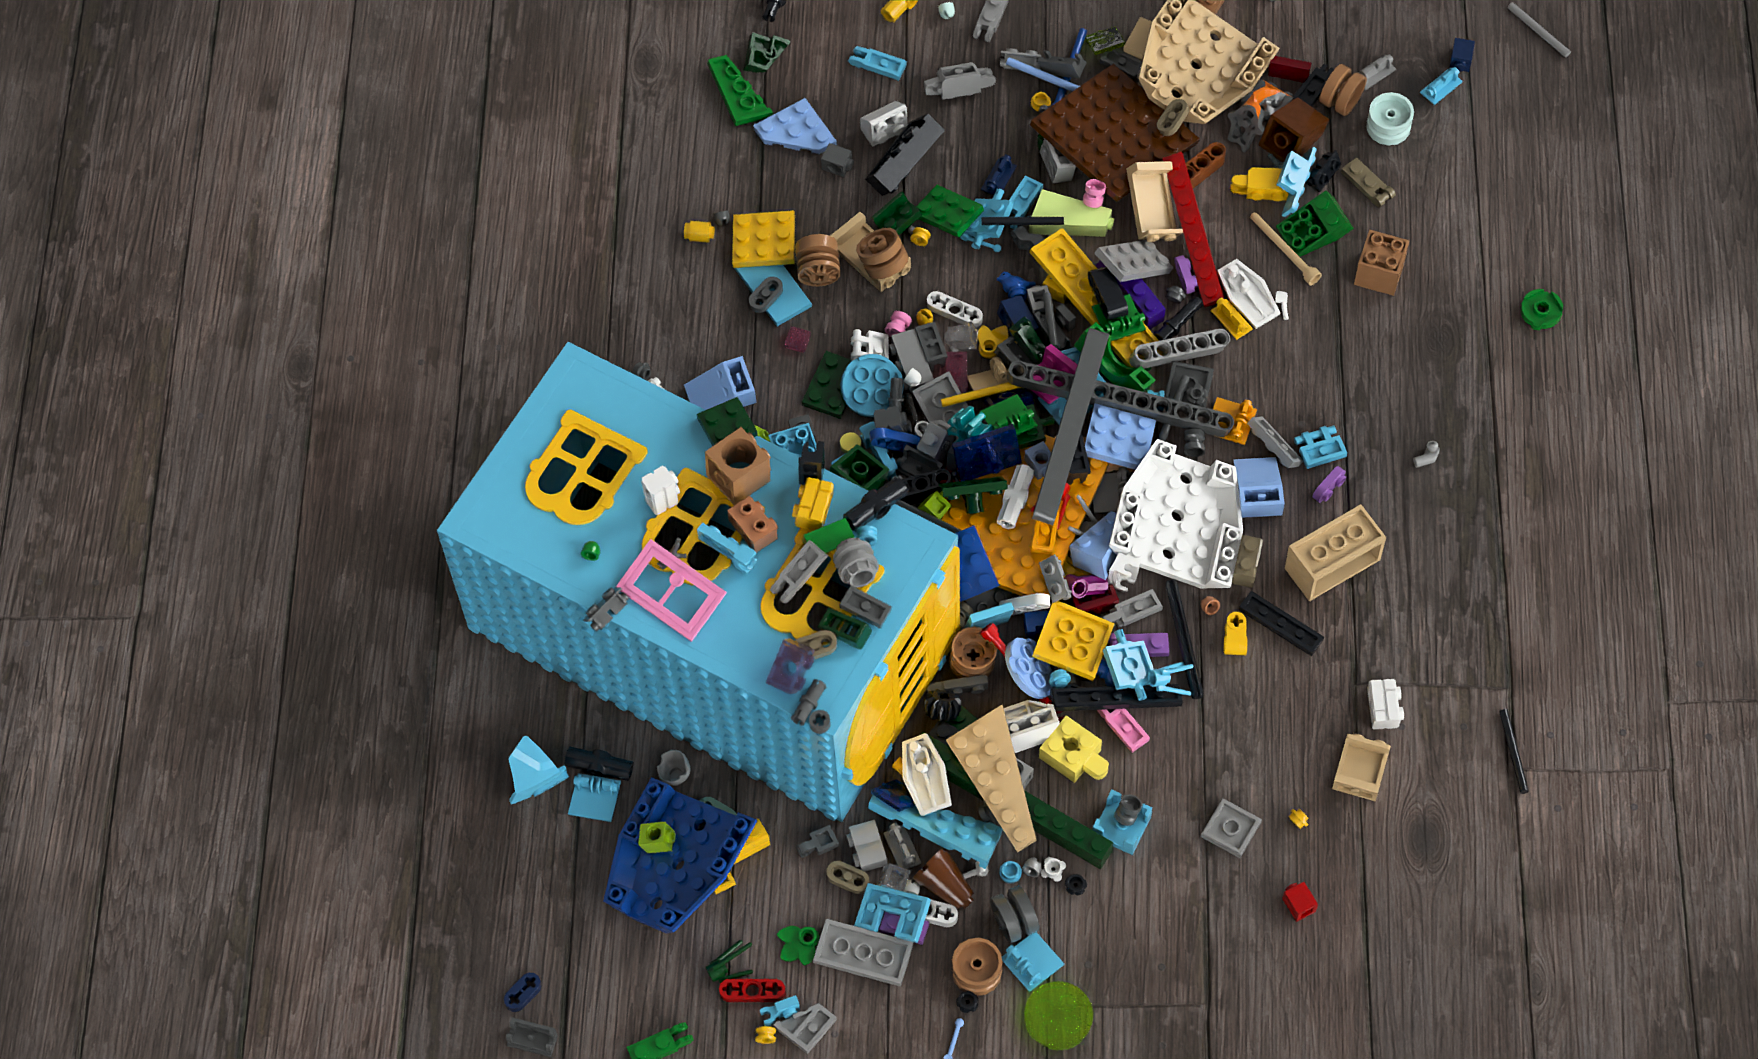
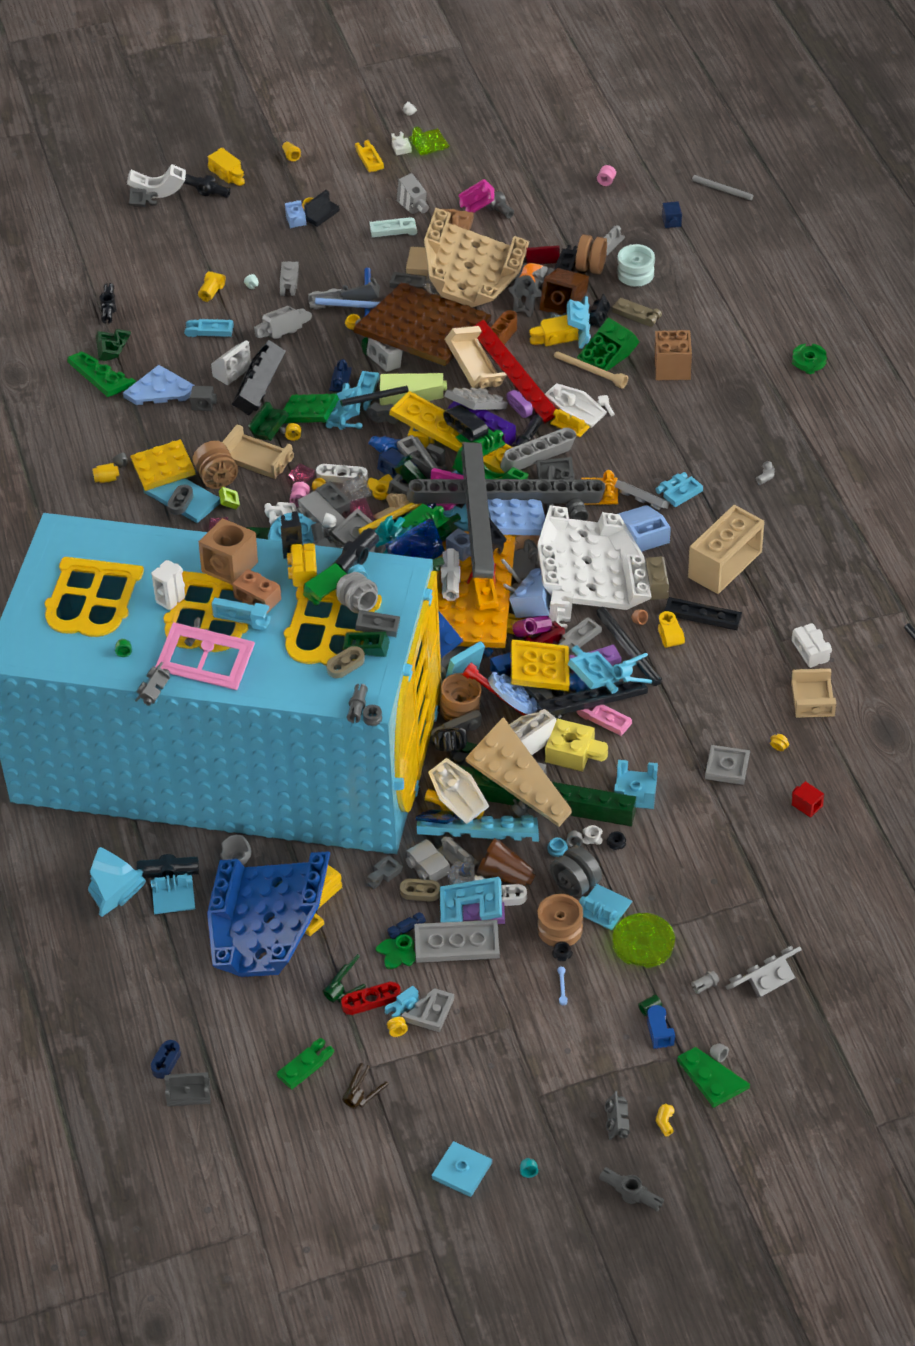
camera: 20 degrees left, 15 degrees down
(651, 831) = (243, 900): lime brick -> none
(725, 419) = (197, 529): dark green plate -> none
(780, 676) = (328, 666): clear purple brick -> none
(799, 570) = (311, 610): light grey hinge -> none
(818, 915) = (406, 925): none -> dark blue axle
(820, 306) = (229, 498): none -> lime plate
(882, 253) = (268, 445): medium nougat wheel -> none
(909, 297) = (301, 474): none -> clear pink plate
(979, 871) = (531, 851): white hand -> none
(1028, 603) = (495, 646): white beam -> none
(1053, 576) = (508, 622): light grey hinge -> none
(1059, 678) = (540, 694): medium azure plate -> none
(1094, 192) = (424, 364): bright pink wheel -> none
(1105, 40) = (388, 270): piece -> none
(1128, 809) = (637, 774): dark grey wheel -> none
(1171, 119) = (466, 300): dark tan plate -> none
(1175, 294) = (517, 418): dark grey plate -> none
(1334, 479) = (696, 515): medium lavender plate -> none
(1442, 85) = (665, 238): medium azure hinge -> none

